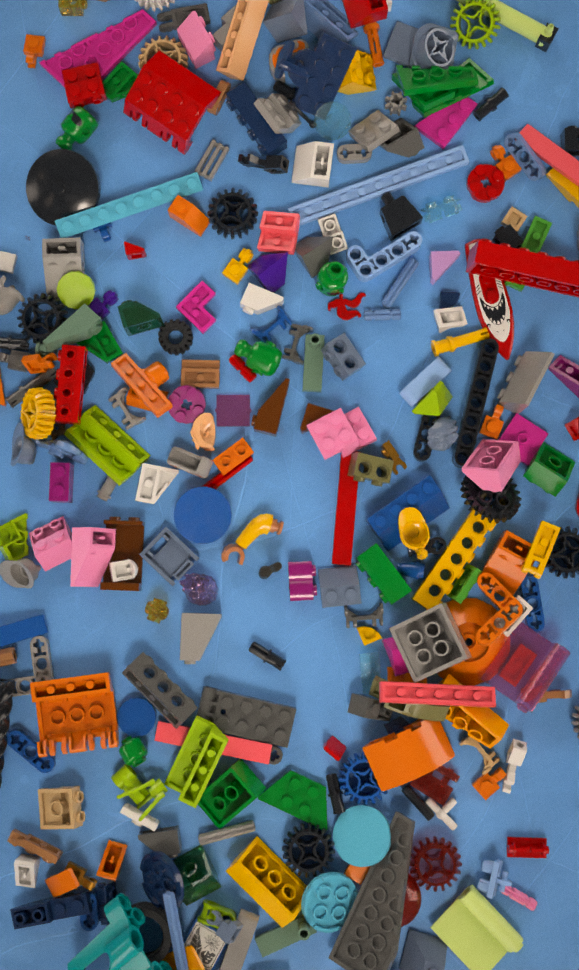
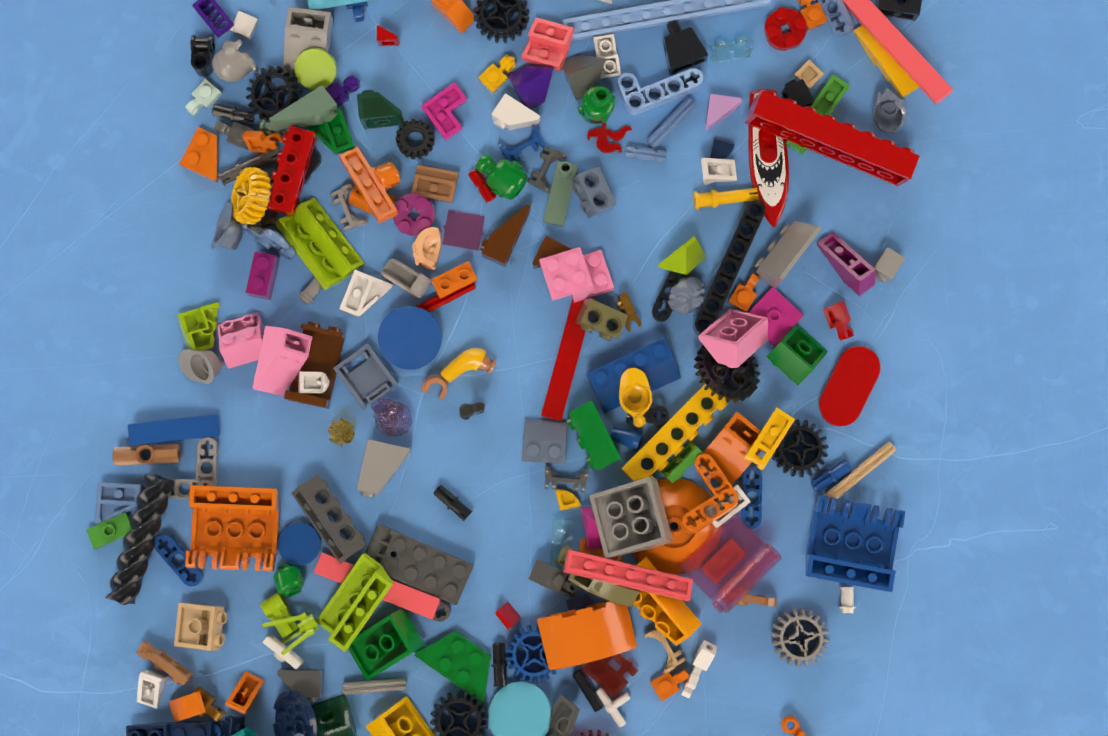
camera: 10 degrees right, 0 degrees up
(301, 580) = (503, 428): magenta brick -> none
(425, 382) = (678, 234): light blue beam -> none

